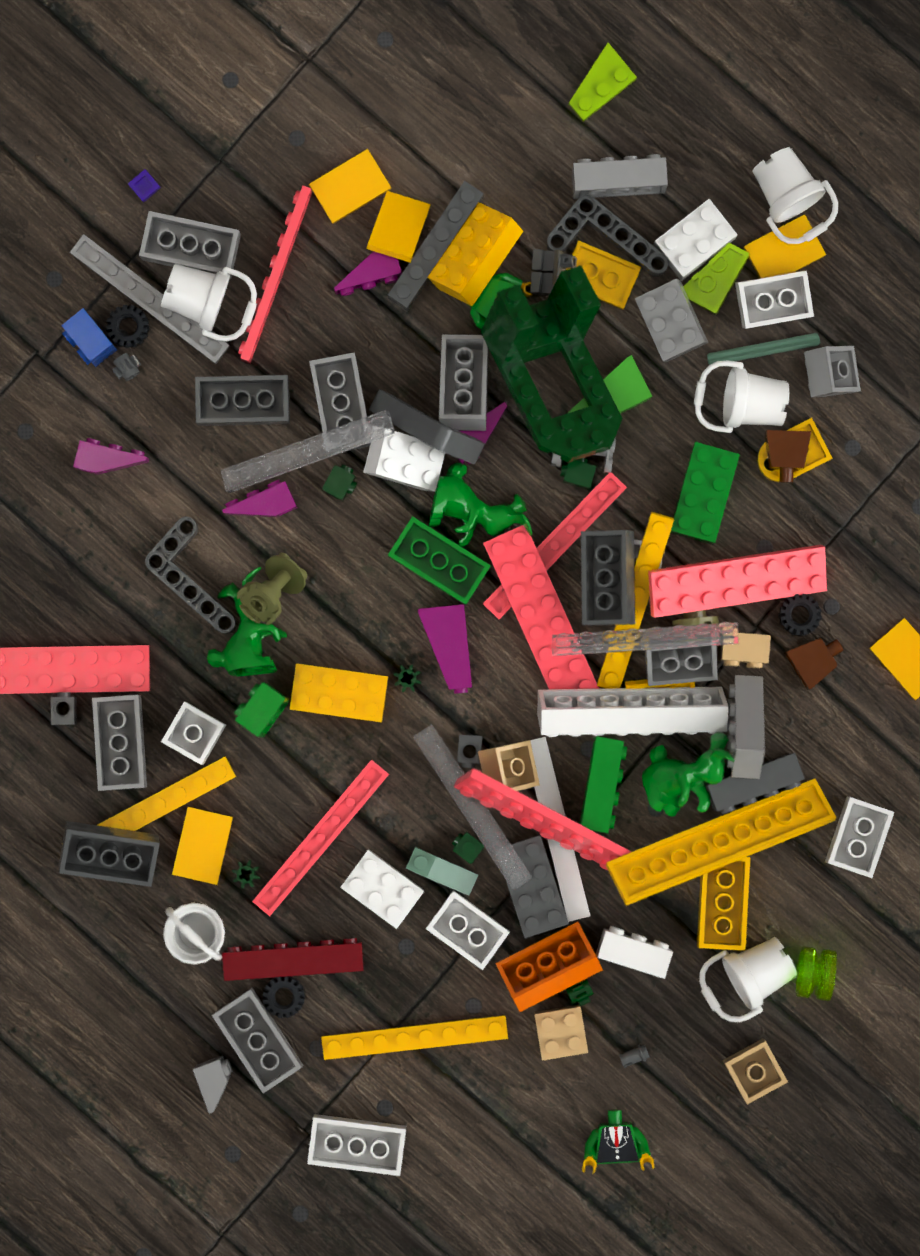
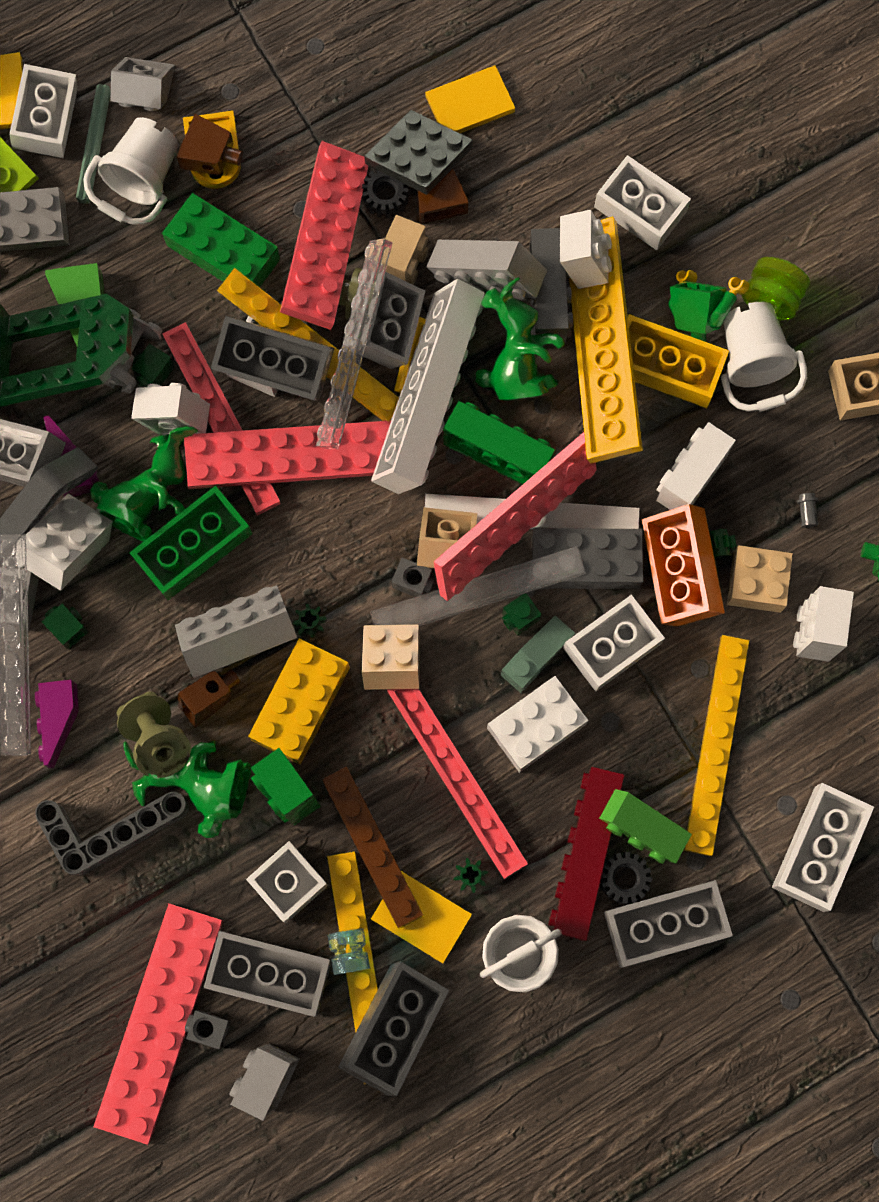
camera: 70 degrees left, 10 degrees down
(38, 769) = (264, 1081): none -> light grey brick
(147, 802) = (348, 962): none -> clear light blue wheel
(212, 1080) = (699, 990): light grey slope -> none
(243, 789) = (373, 848): none -> reddish brown plate
(311, 614) = (199, 703): none -> reddish brown torso
(325, 999) = (644, 827): none -> bright green brick
(377, 623) = (234, 631): none -> light grey brick
(397, 755) = (391, 657): none -> tan brick
(449, 641) = (287, 562): magenta slope -> none
(535, 1094) = (823, 624): none -> white brick
(543, 505) = (169, 408): none -> white brick
(779, 914) = (702, 306): none -> green torso
(791, 803) = (584, 249): none -> white brick
(842, 632) = (418, 152): none -> pearl dark grey plate

